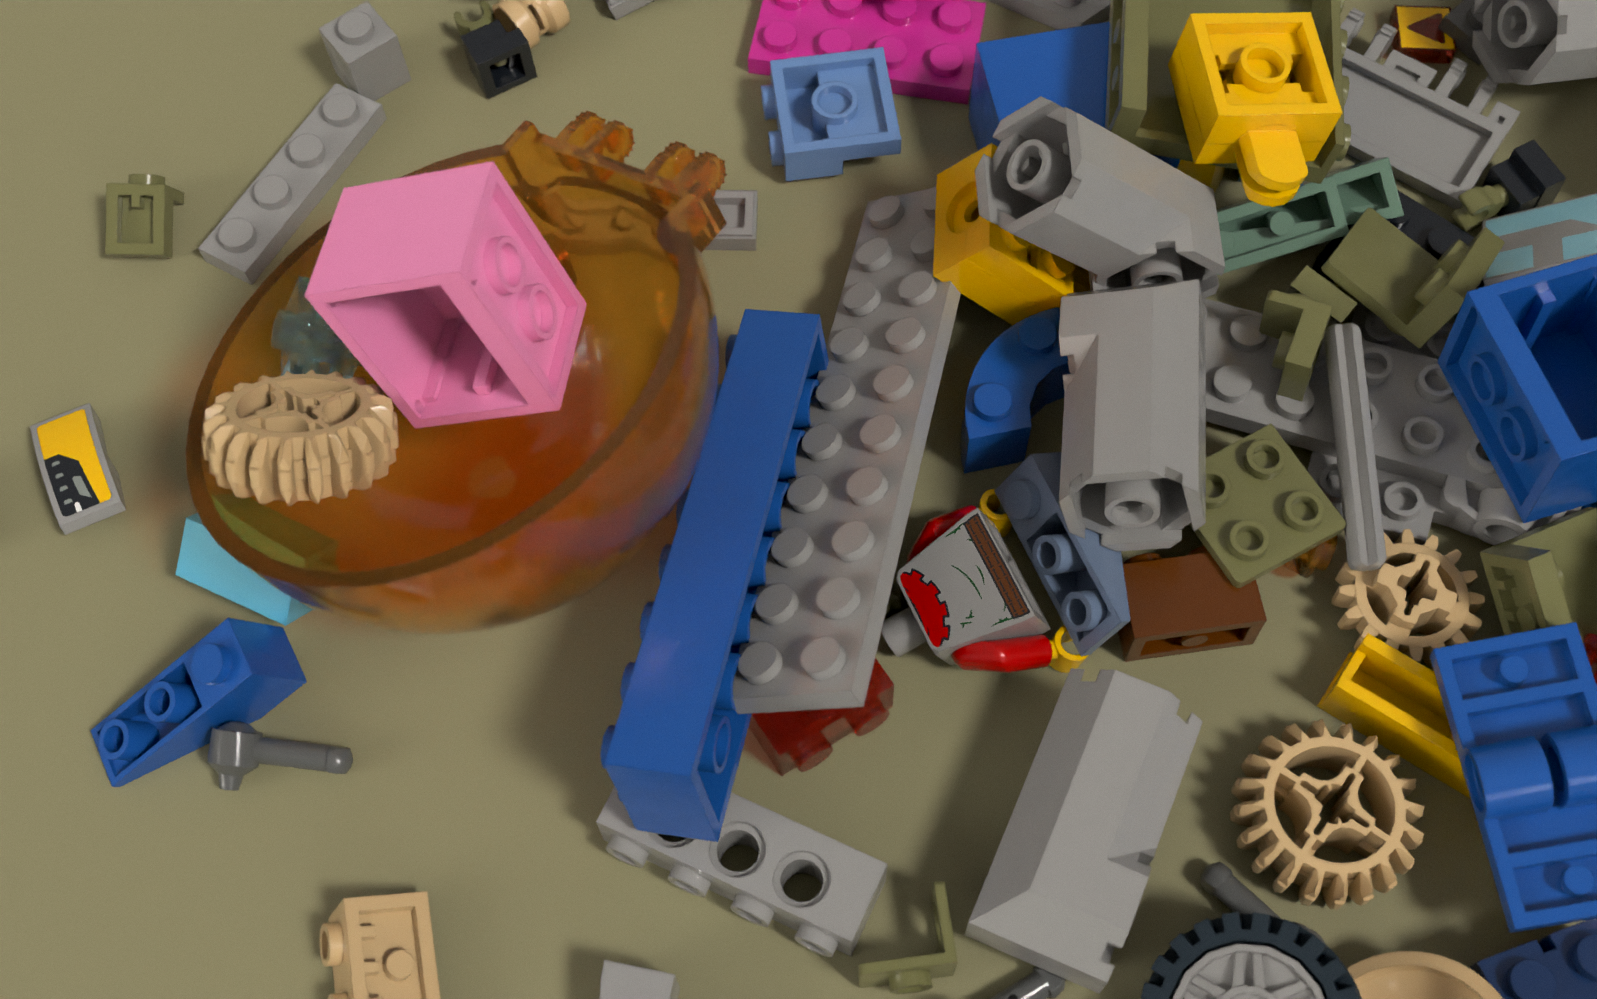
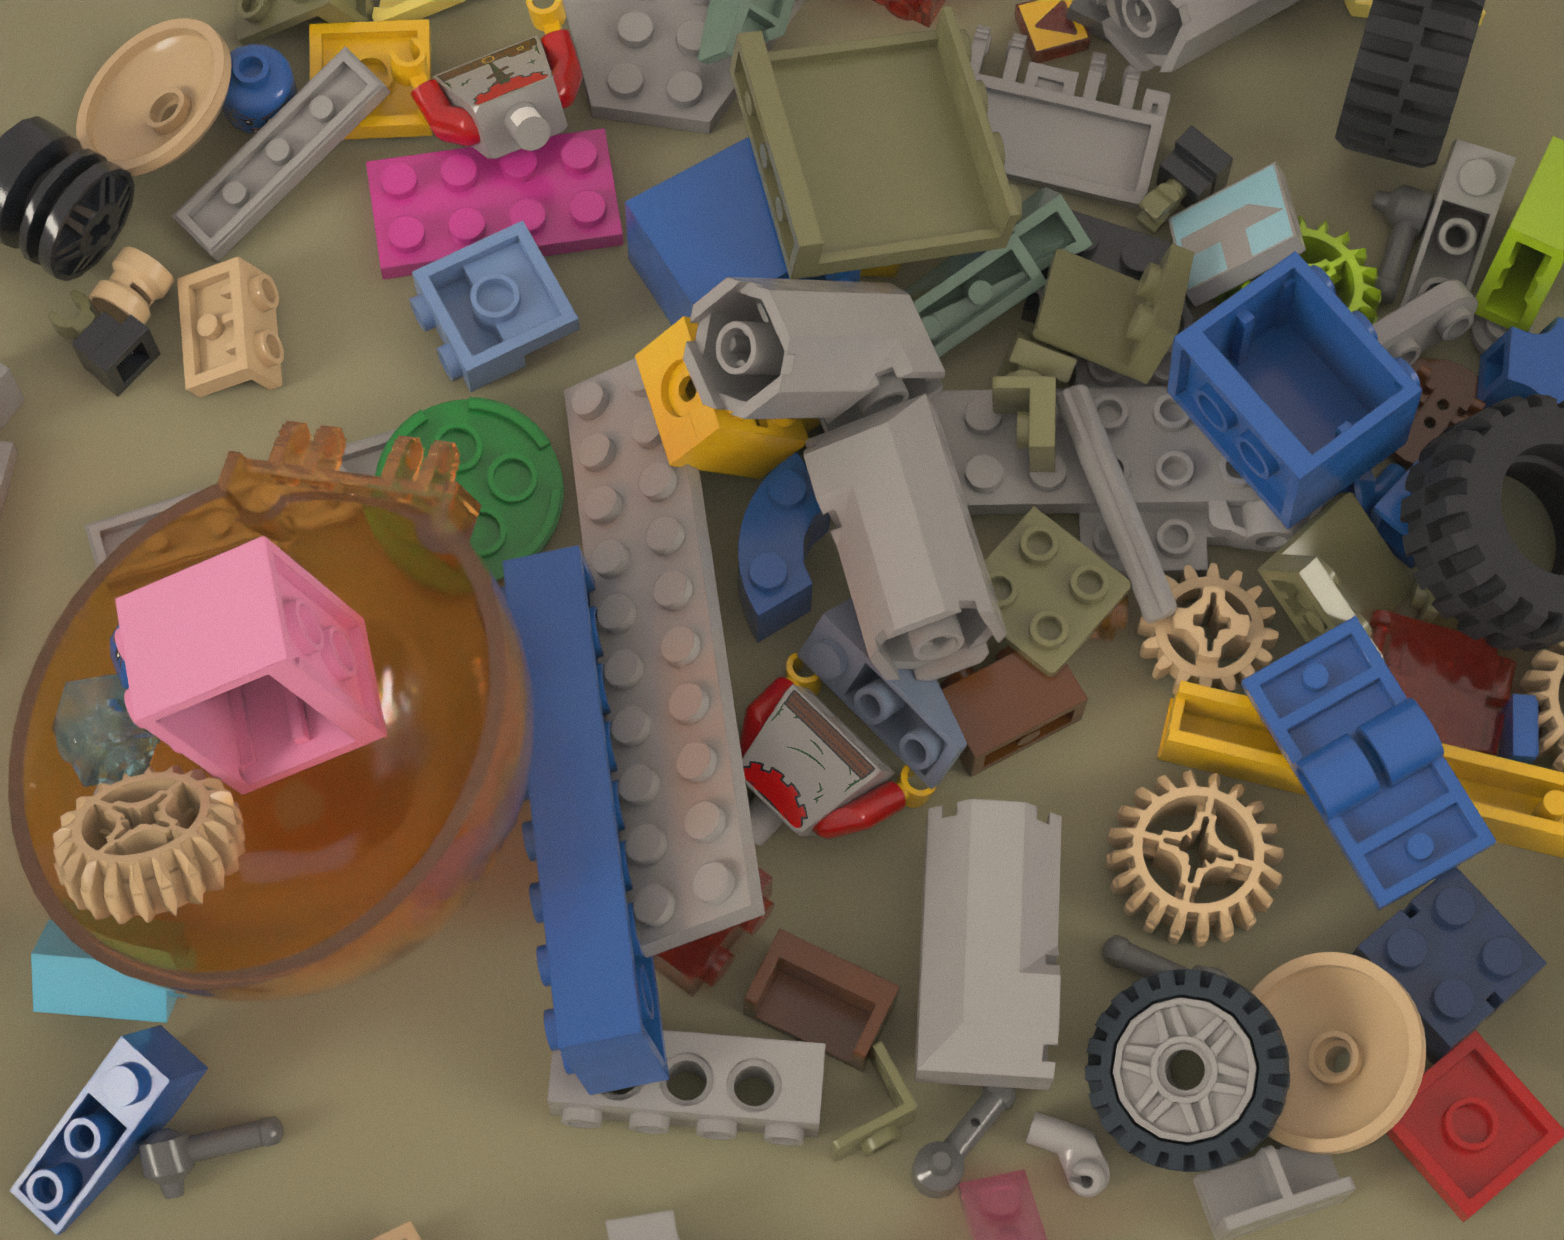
camera: 25 degrees left, 5 degrees up
(601, 67) = (229, 327): none -> tan bracket
(772, 251) = (503, 466): none -> green tile
(901, 820) = (820, 999): none -> reddish brown panel
(1255, 97) = (921, 196): yellow brick -> none

